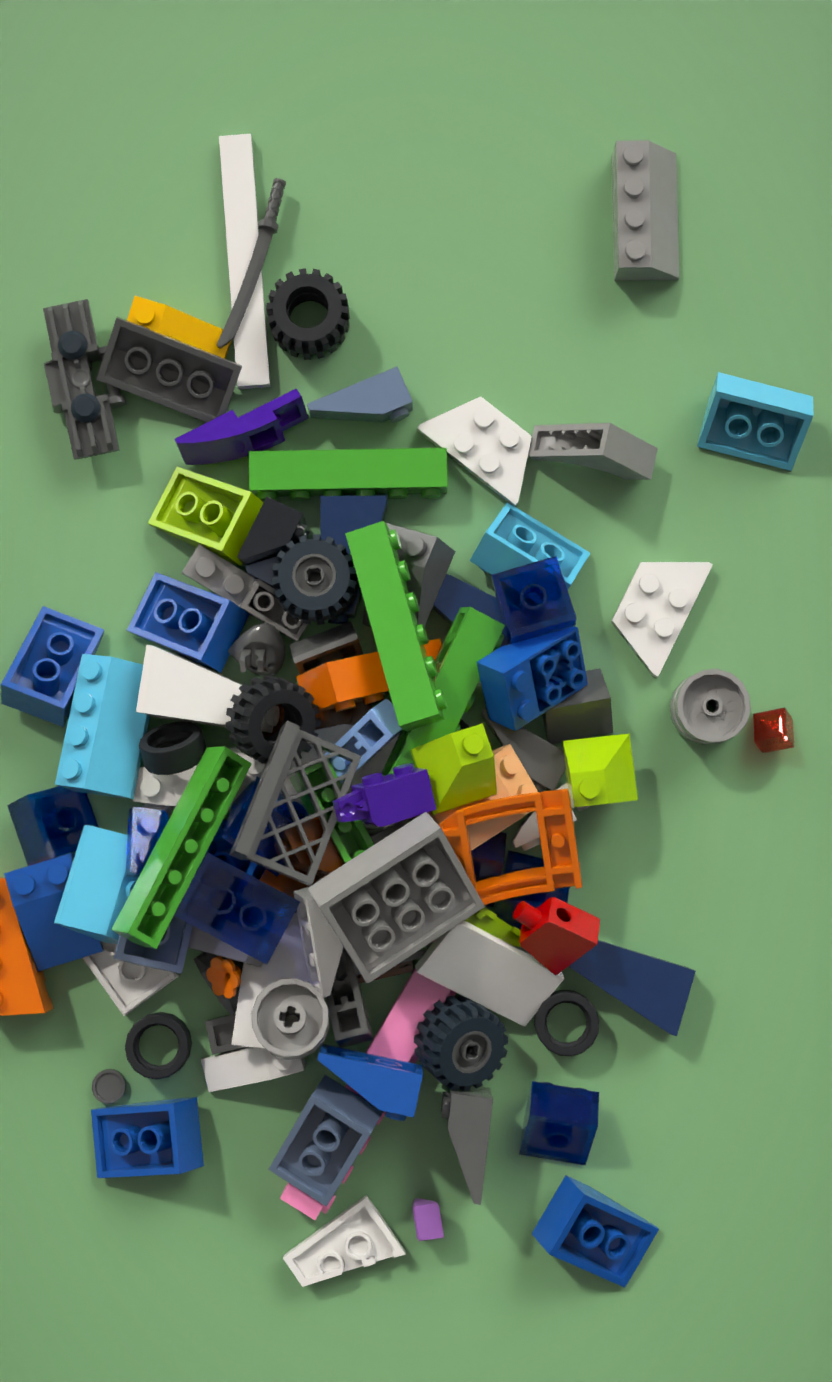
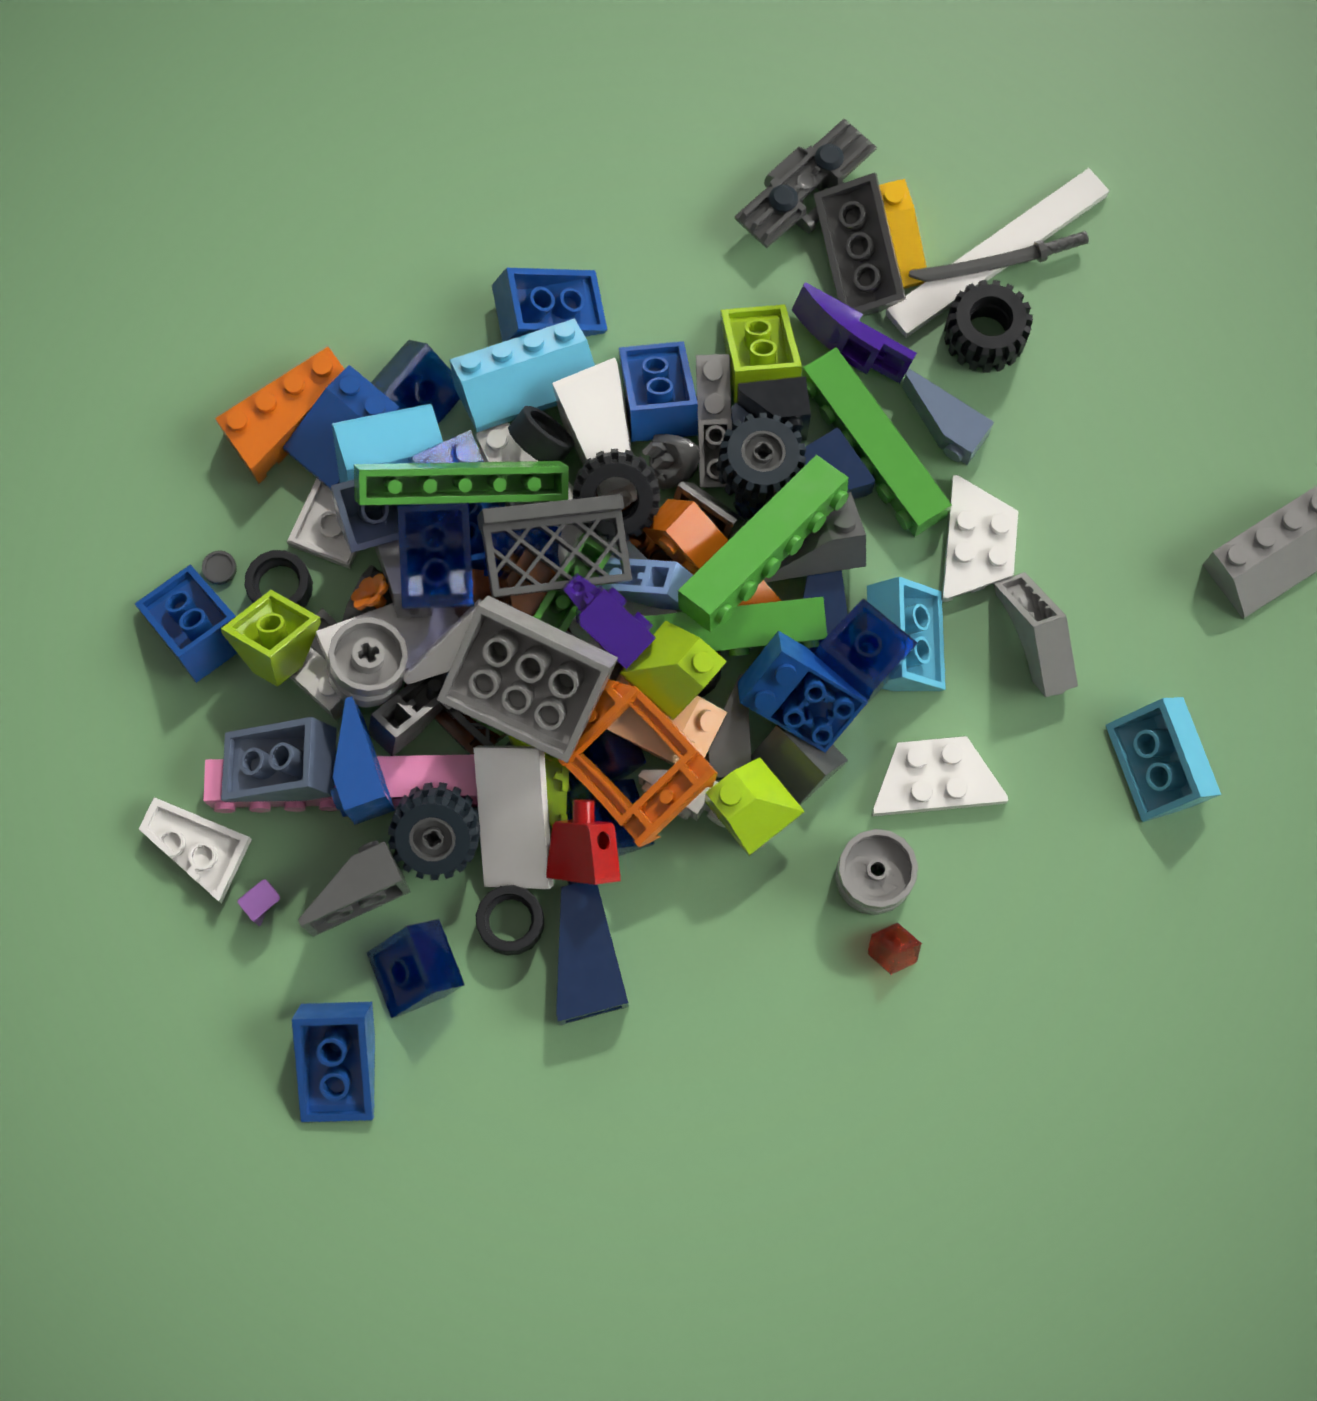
camera: 60 degrees right, 10 degrees down
(209, 1081) = (273, 636): none -> lime slope

